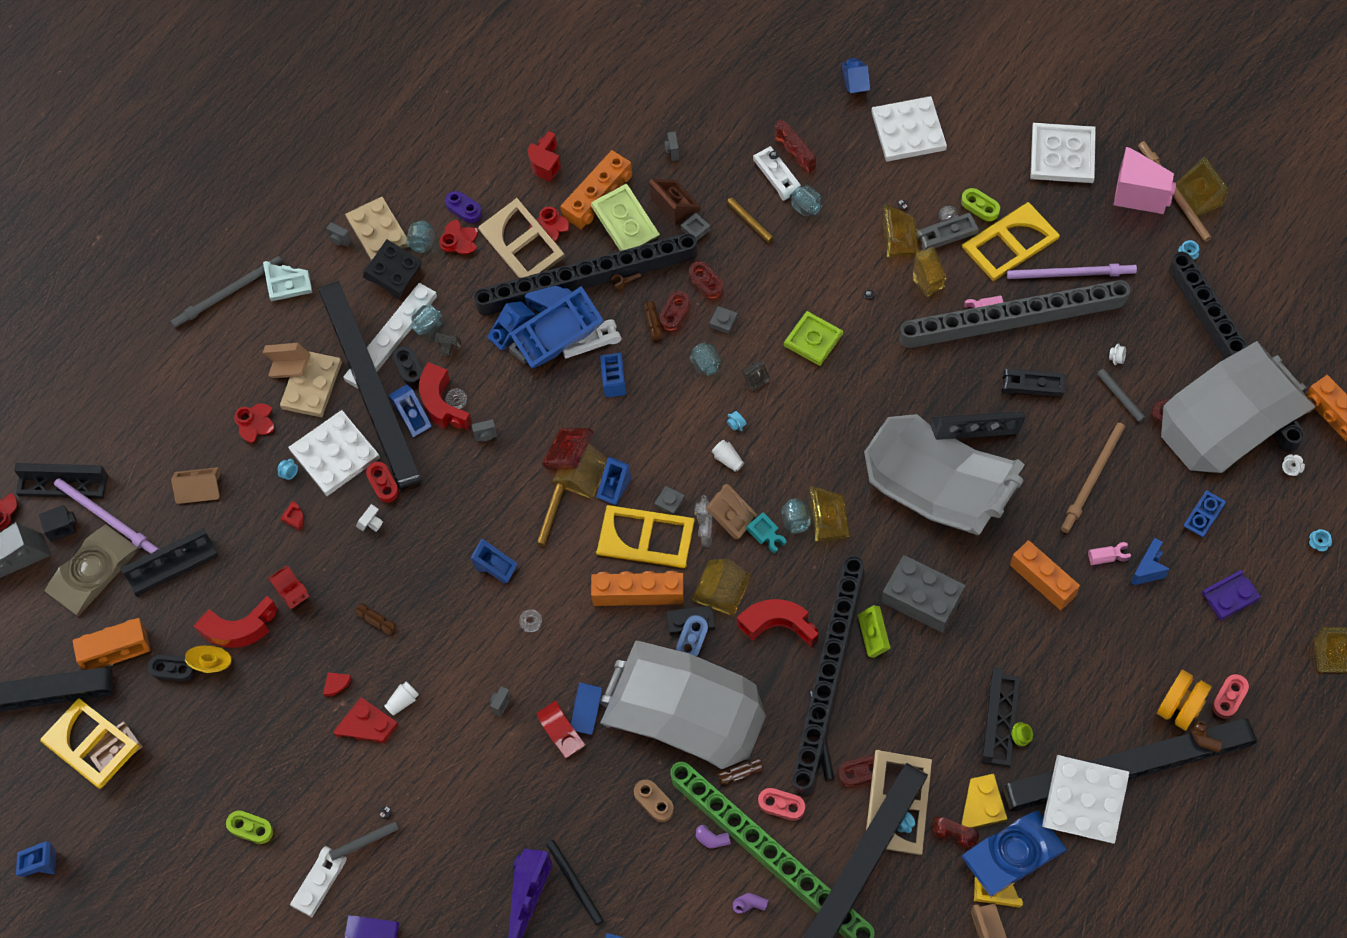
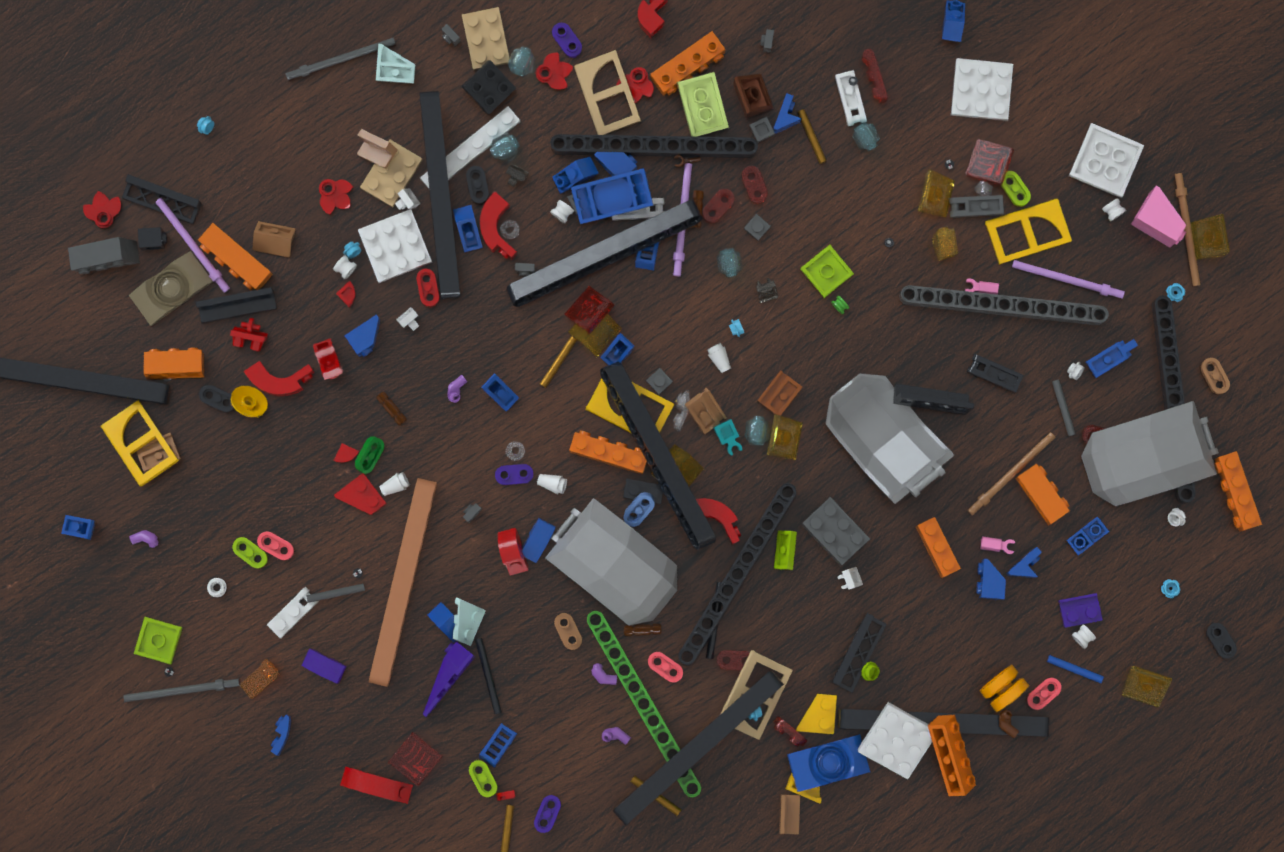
camera: 10 degrees right, 20 degrees up
(94, 394) = (205, 125): none -> medium azure plate
(119, 847) = (145, 536): none -> medium lavender arm
(155, 512) = (235, 257): none -> orange brick
(181, 592) = (257, 337): none -> red hips
(214, 875) = (210, 587): none -> white plate
(279, 810) = (275, 546): none -> coral plate
(283, 487) = (345, 267): none -> white wheel
(323, 551) = (364, 336): none -> blue slope
(334, 402) = (407, 199): none -> white tile
(363, 676) = (369, 454): none -> green plate
(441, 576) = (454, 389): none -> medium lavender arm
(441, 808) = (402, 582): none -> nougat beam
(507, 363) = (562, 211): none -> white wheel
(507, 834) = (443, 619): none -> blue slope
(529, 822) = (467, 621): none -> light aqua wing
(538, 649) = (514, 474): none -> dark purple plate
(565, 389) = (604, 253): none -> beam
(584, 641) = (553, 483): none -> white cone
(648, 369) = (679, 256): none -> lavender bar
(696, 569) = (657, 455): none -> black beam
(717, 209) = (784, 119): none -> blue slope
(807, 471) = (779, 393): none -> dark orange plate
(840, 365) = (840, 305): none -> bright green bush
(944, 187) = (989, 162): none -> clear red tile
(961, 639) = (852, 578): none -> white tile
(1090, 193) = (1114, 209): none -> white wheel
(1119, 592) = (992, 582): none -> blue slope
(1136, 485) = (1043, 494): none -> orange brick
(1149, 331) = (1110, 357): none -> blue hinge
(1157, 793) = (952, 755): none -> orange brick
(1248, 619) = (1083, 636): none -> white wheel
(1253, 659) = (1075, 669): none -> blue bar
(1268, 315) = (1214, 376): none -> medium nougat plate

